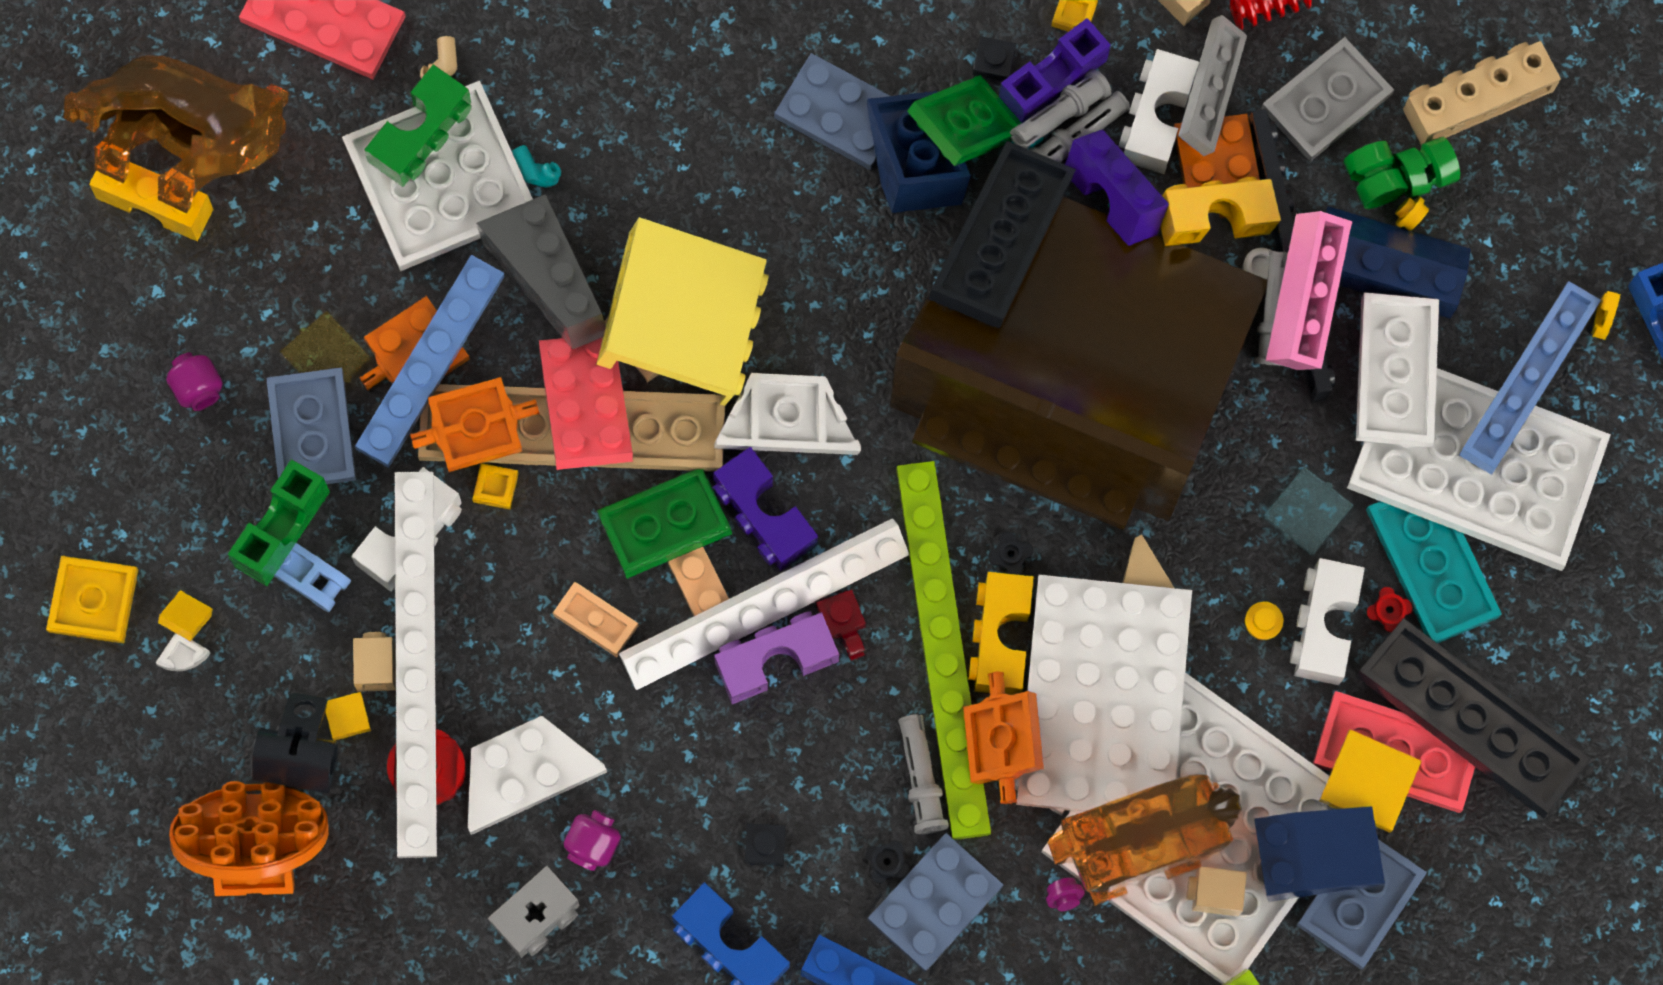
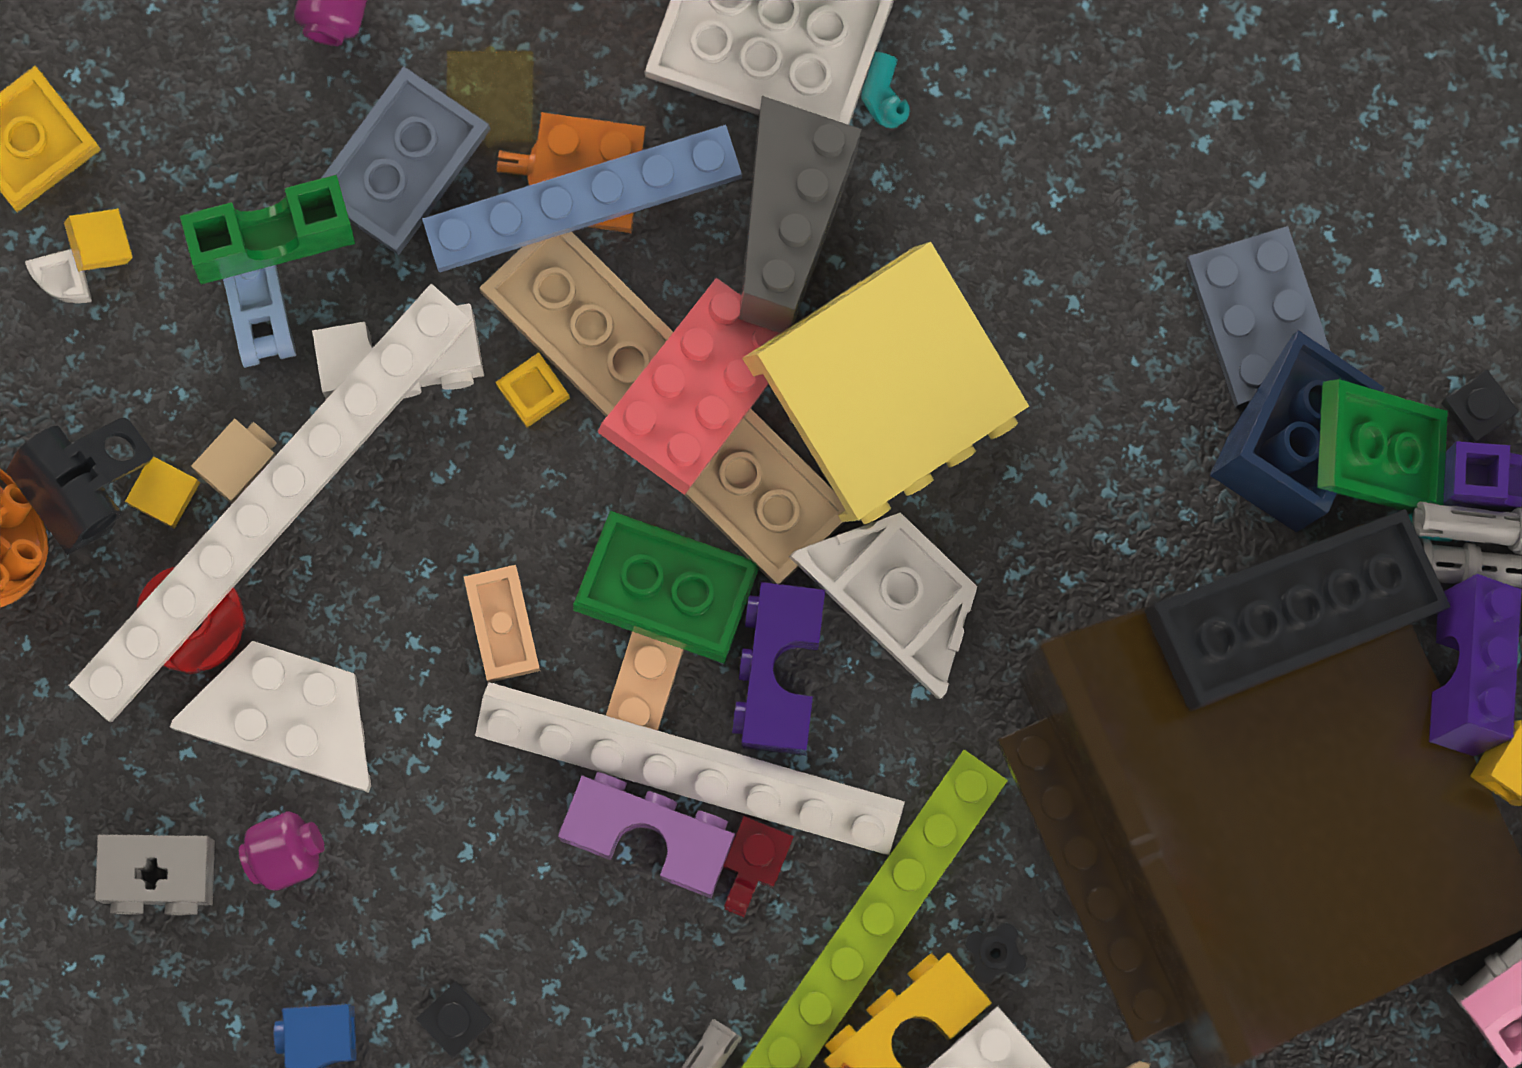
camera: 45 degrees right, 5 degrees up
(474, 424) = (564, 307): orange plate -> none

